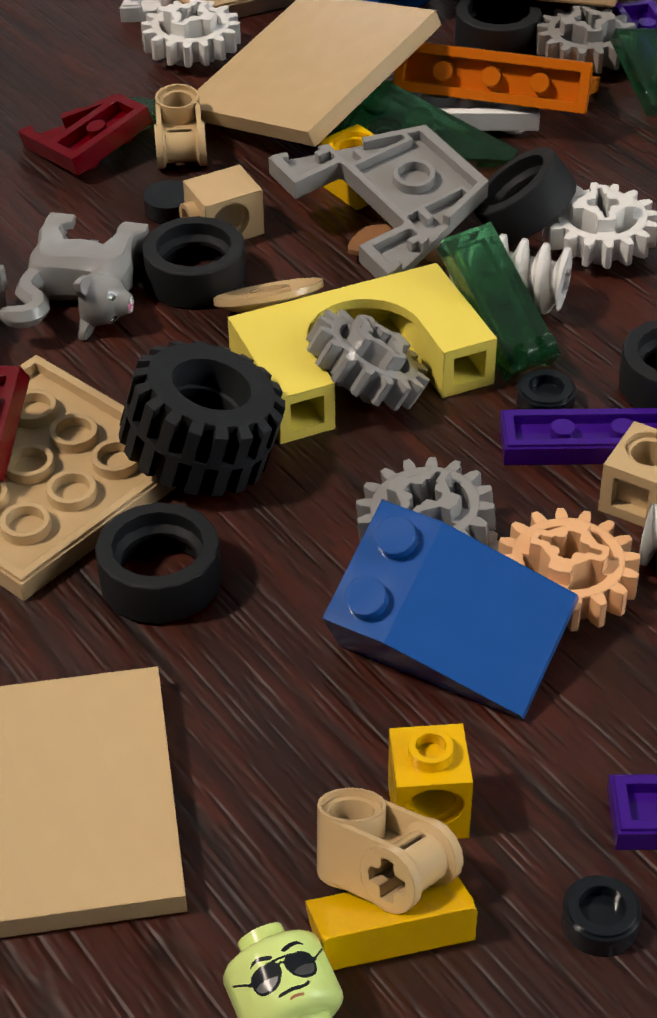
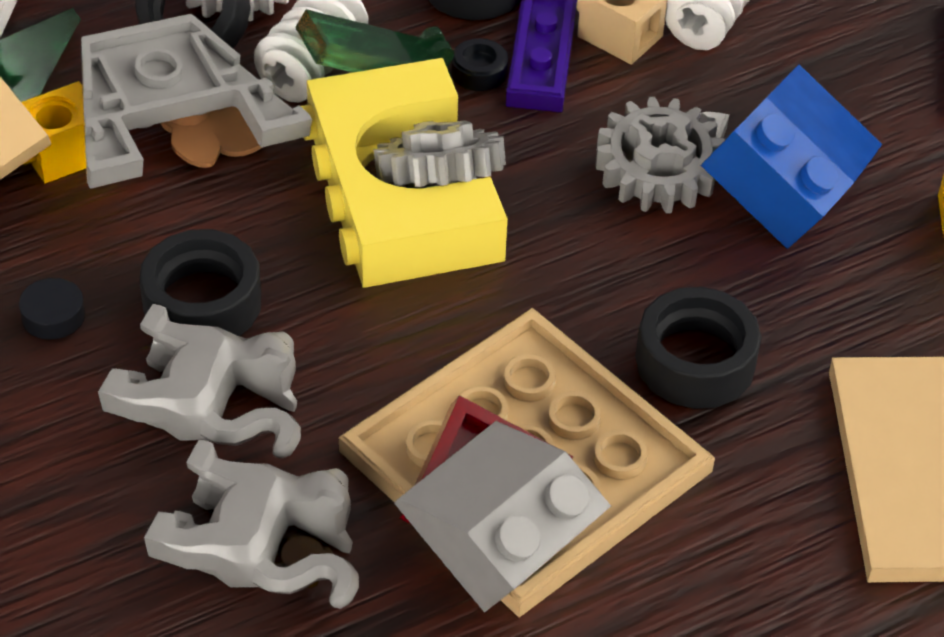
camera: 85 degrees left, 5 degrees up
(201, 418) = (524, 280): black tyre -> none
(227, 196) = (105, 249): tan brick -> none
(267, 294) = (295, 223): tan dish -> none
(580, 559) = (727, 76): light nougat gear -> none

